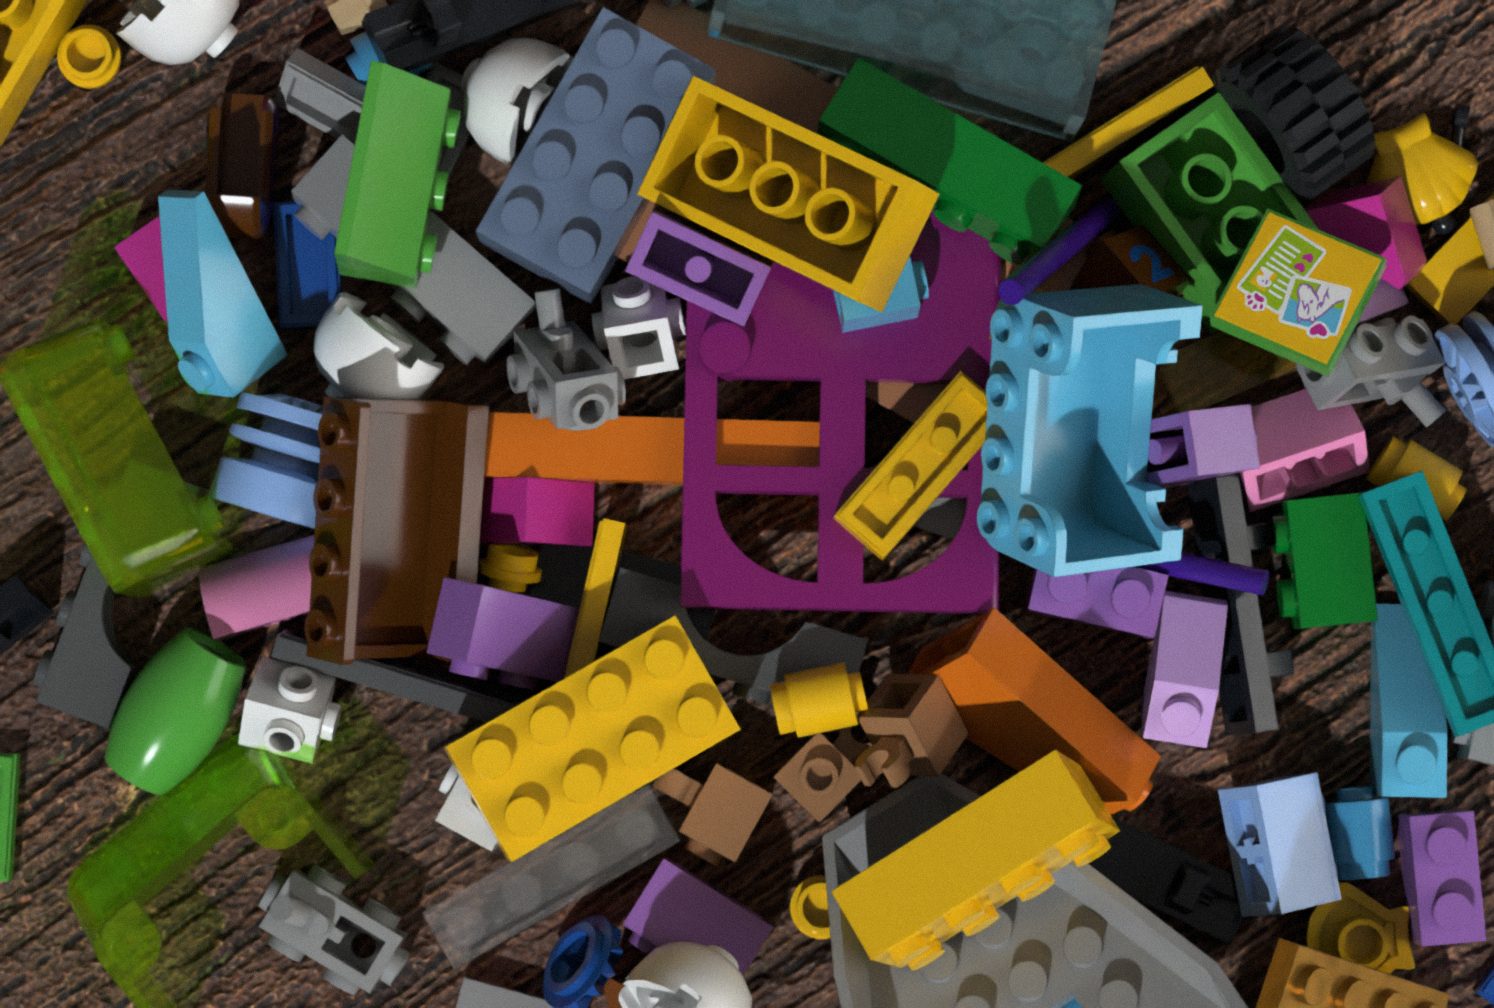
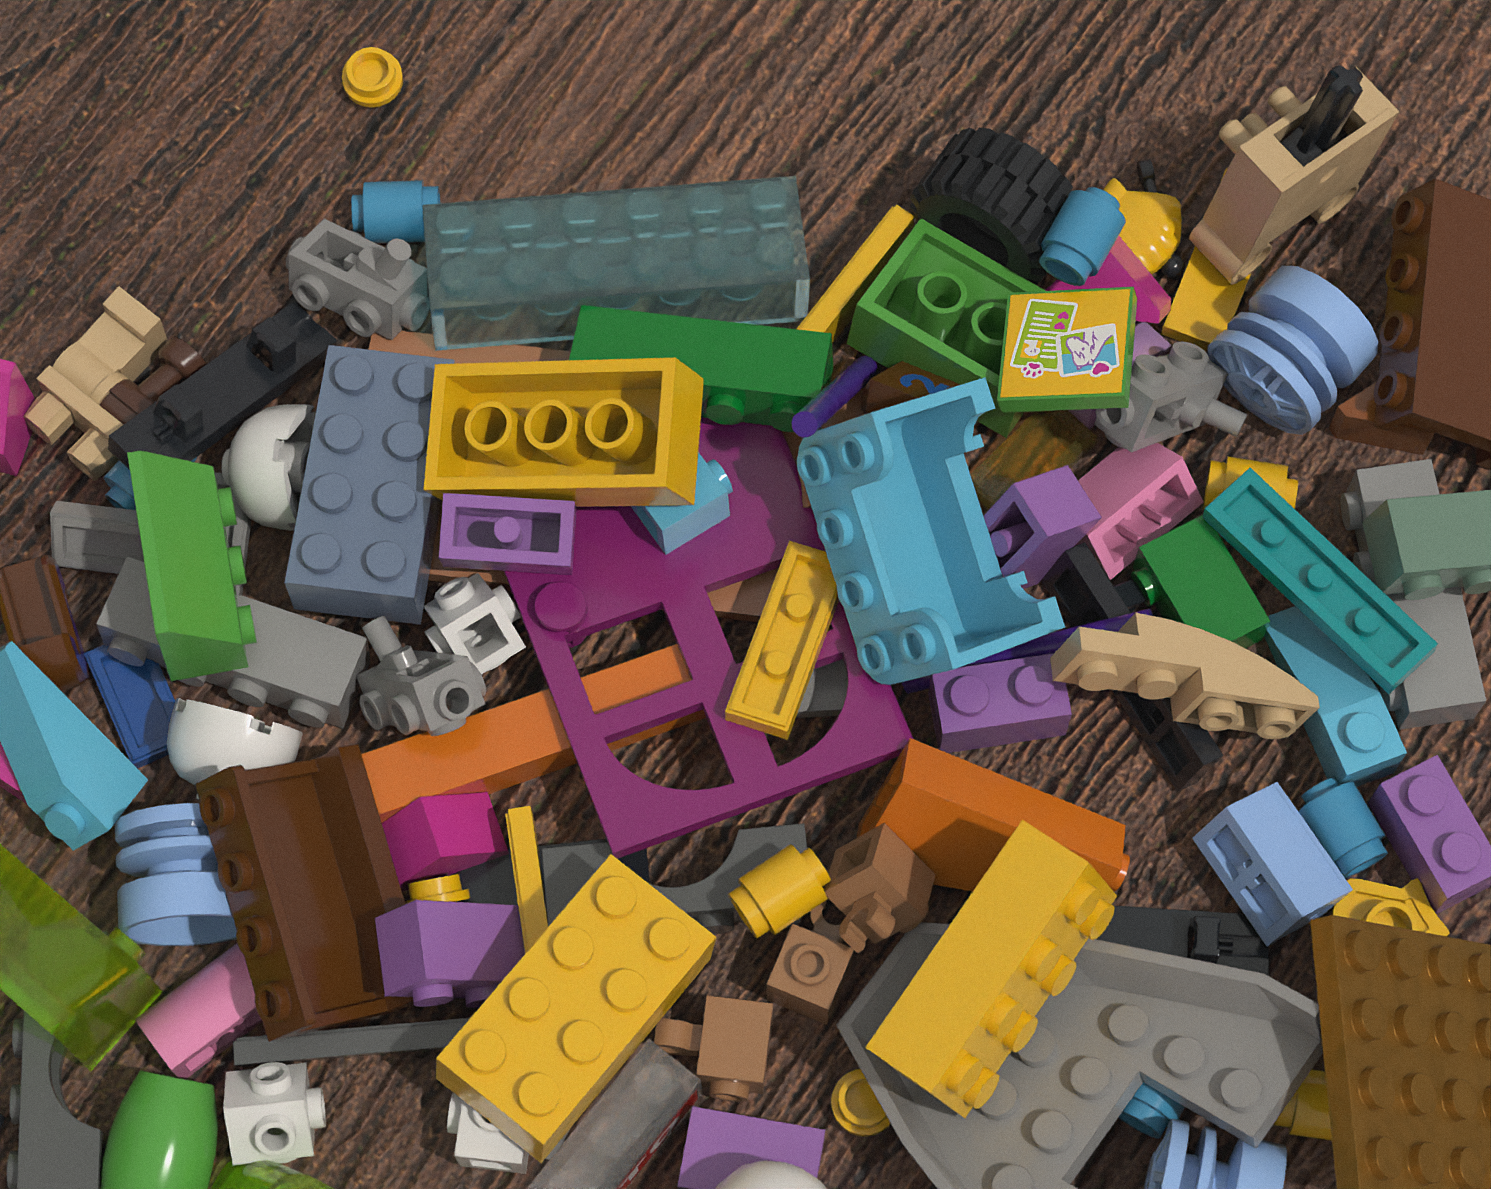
camera: 25 degrees left, 15 degrees down
(1184, 670) = (1114, 747): lavender slope -> none
(1285, 646) = (1201, 673): none -> tan slope
(1360, 185) = (1082, 235): none -> dark azure brick

